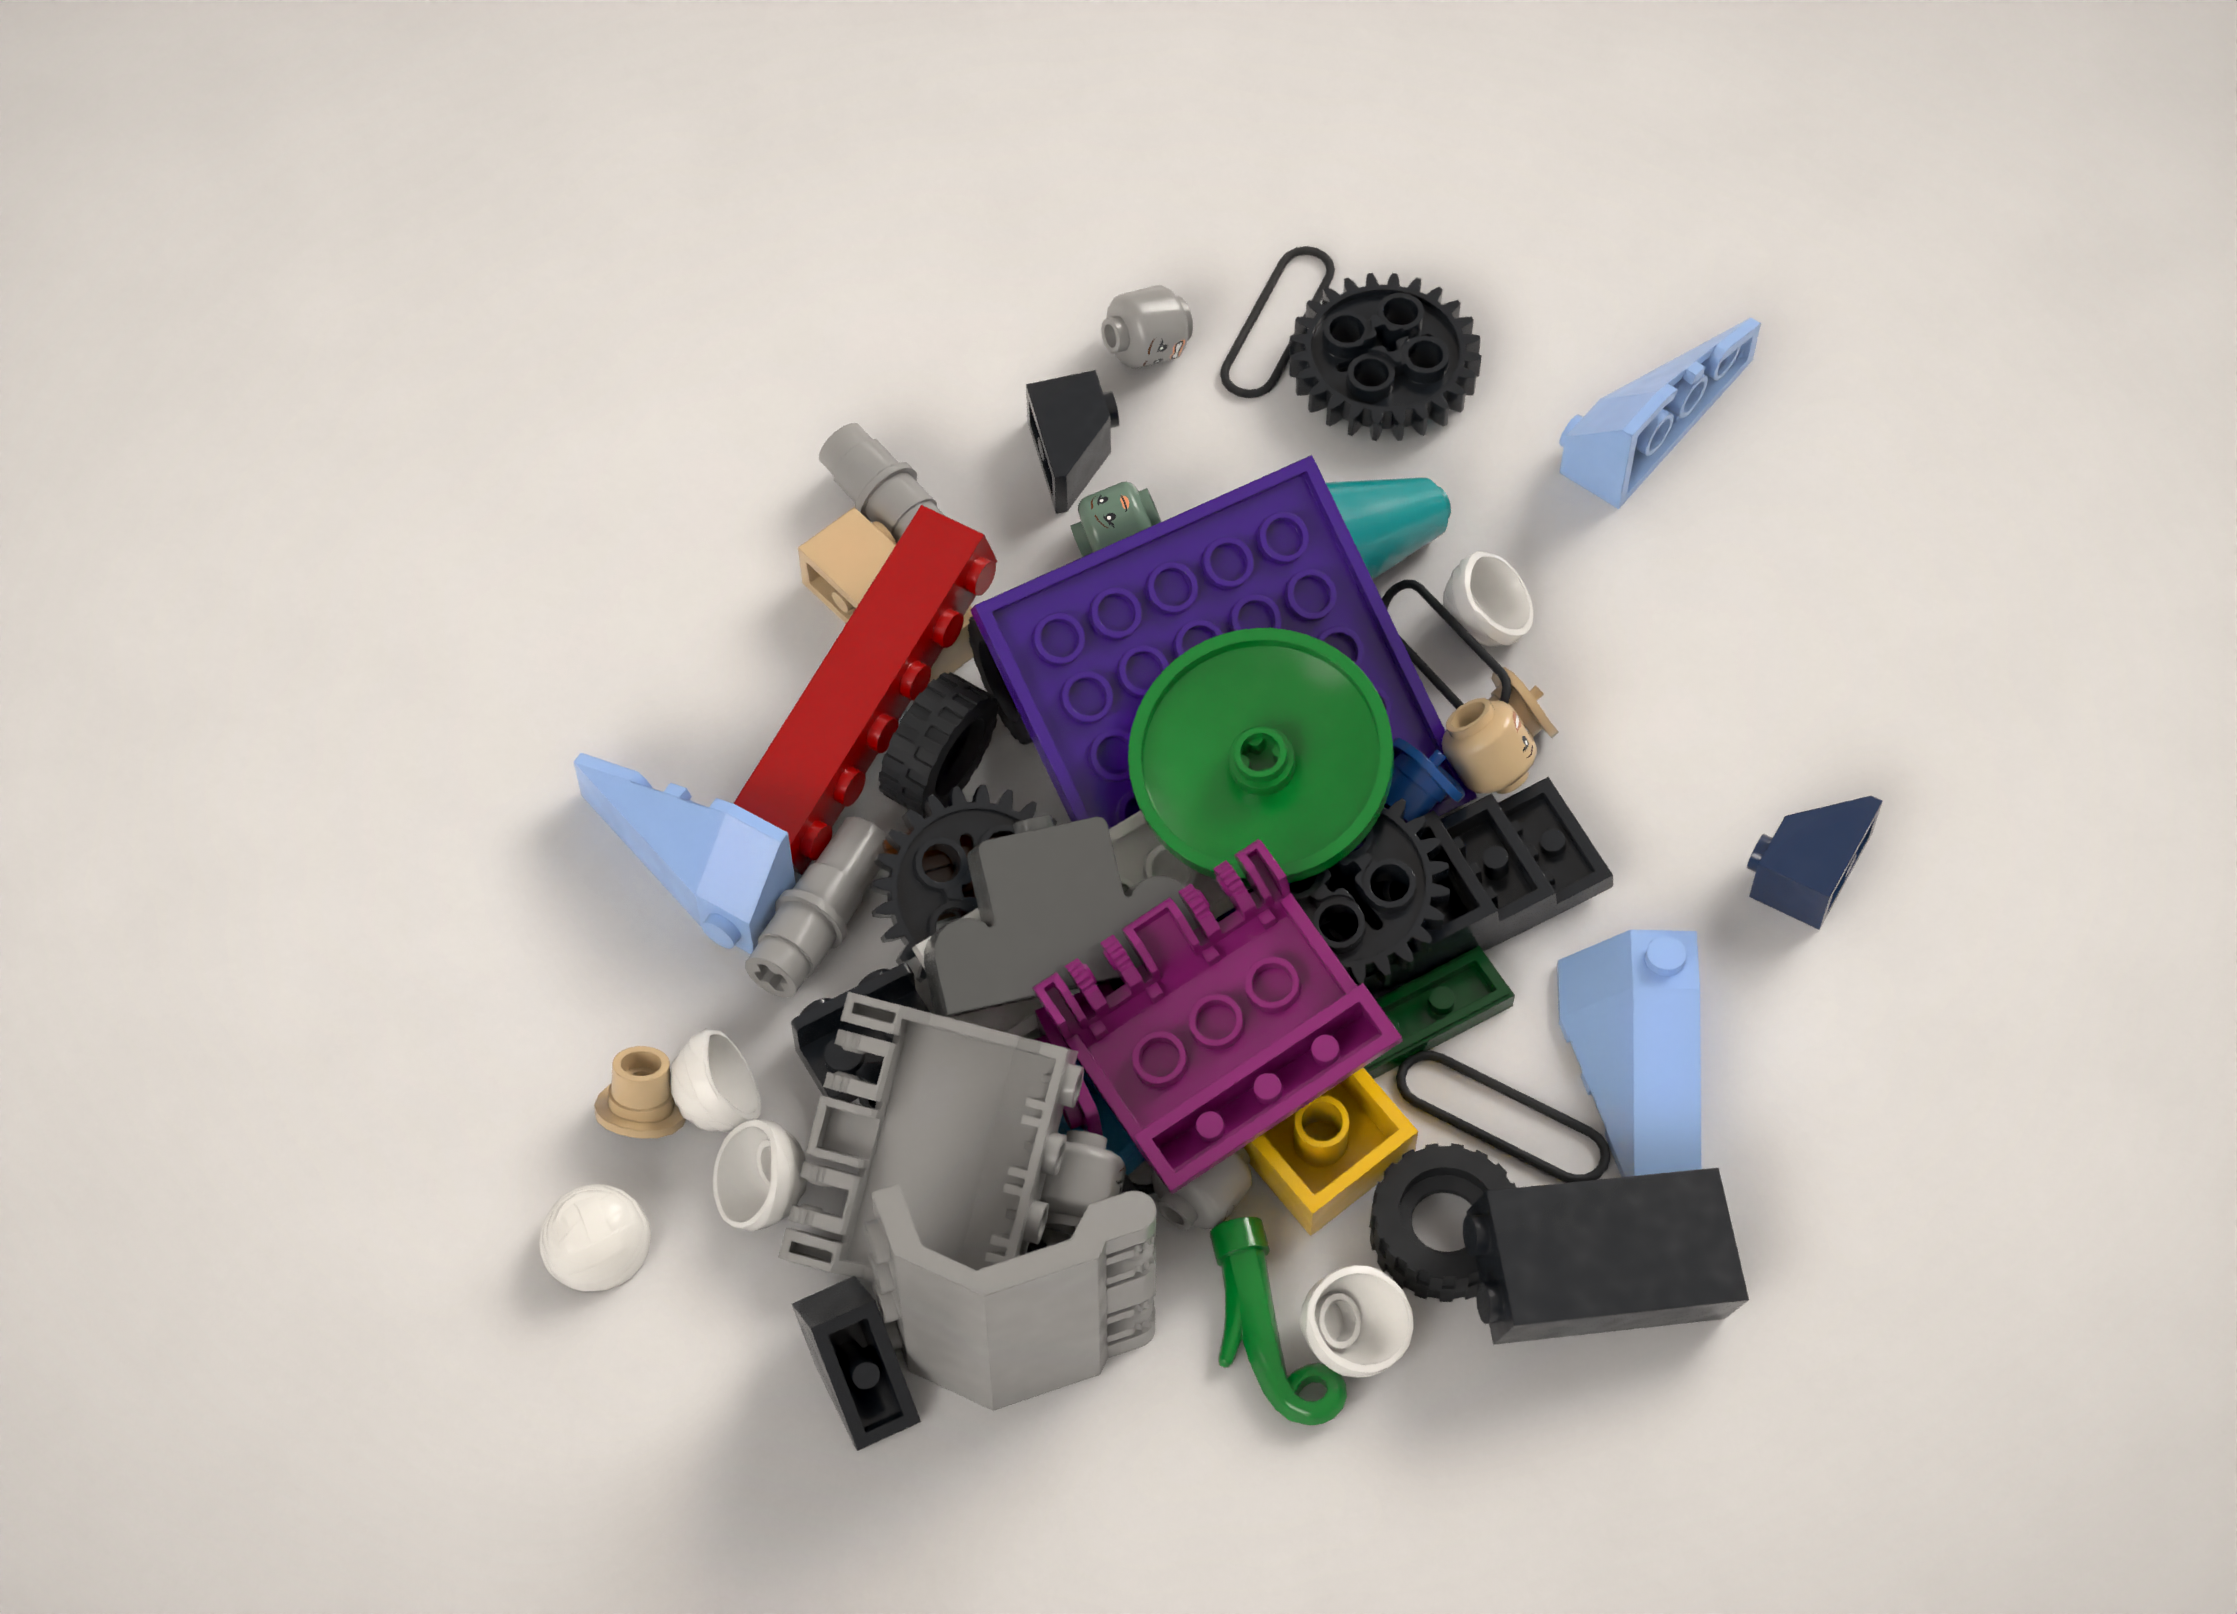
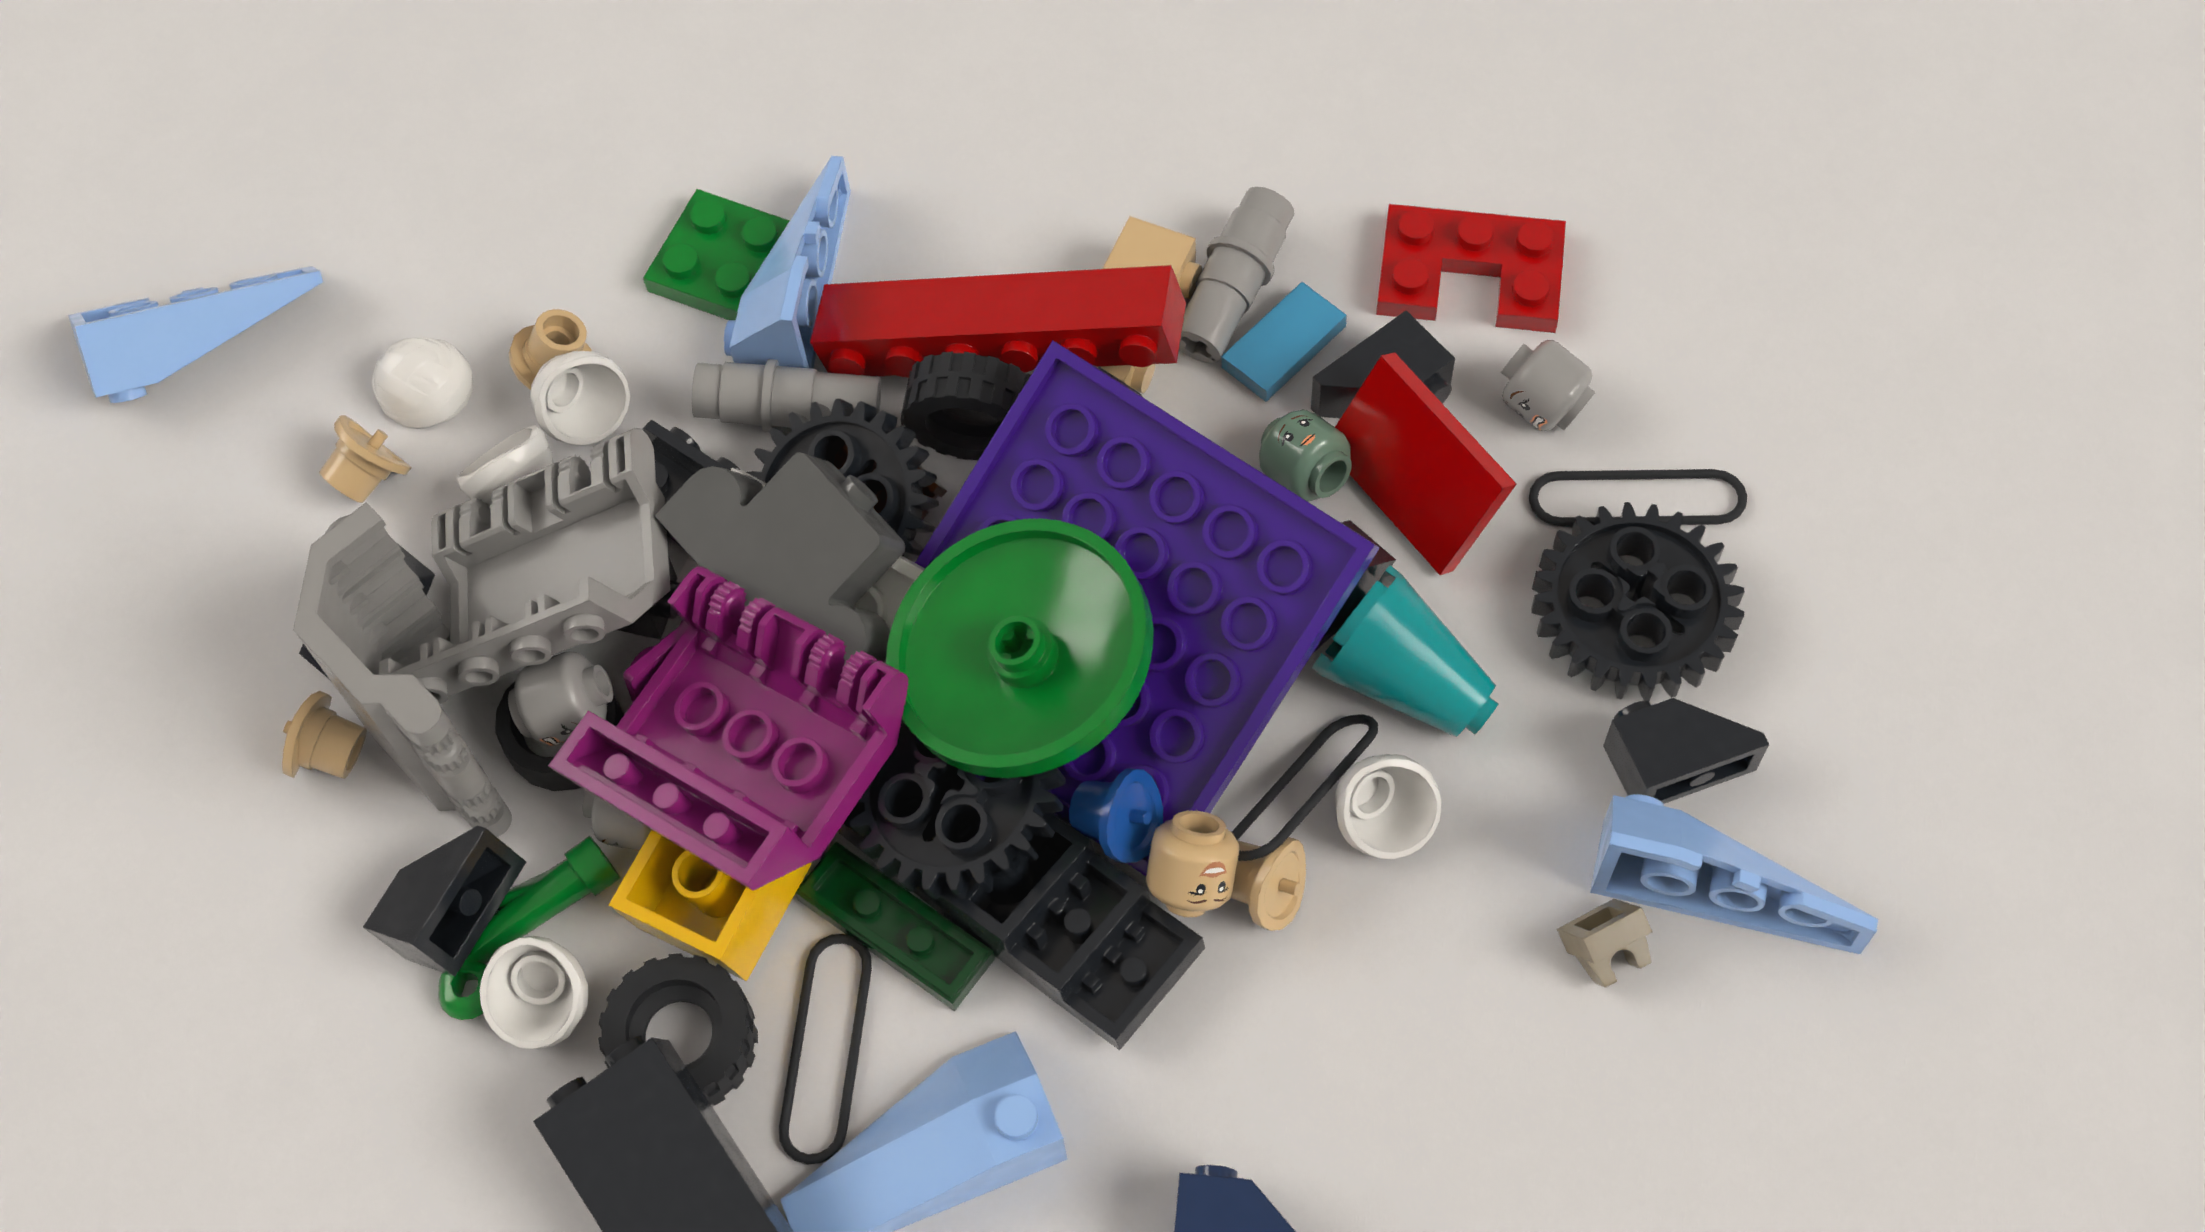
camera: 70 degrees right, 5 degrees up
(396, 1457) = (145, 342): none -> light blue wedge
(607, 917) = (713, 254): none -> green plate
(673, 1313) = (360, 460): none -> tan piece
(943, 350) = (1435, 240): none -> red plate
(981, 496) = (1283, 341): none -> dark azure tile
(982, 1443) = (321, 739): none -> tan piece
(1186, 435) = (1421, 464): none -> red tile
(1227, 1374) = (446, 900): none -> black slope
(1533, 390) = (1679, 749): none -> black slope
(1672, 505) = (1602, 933): none -> dark tan tile

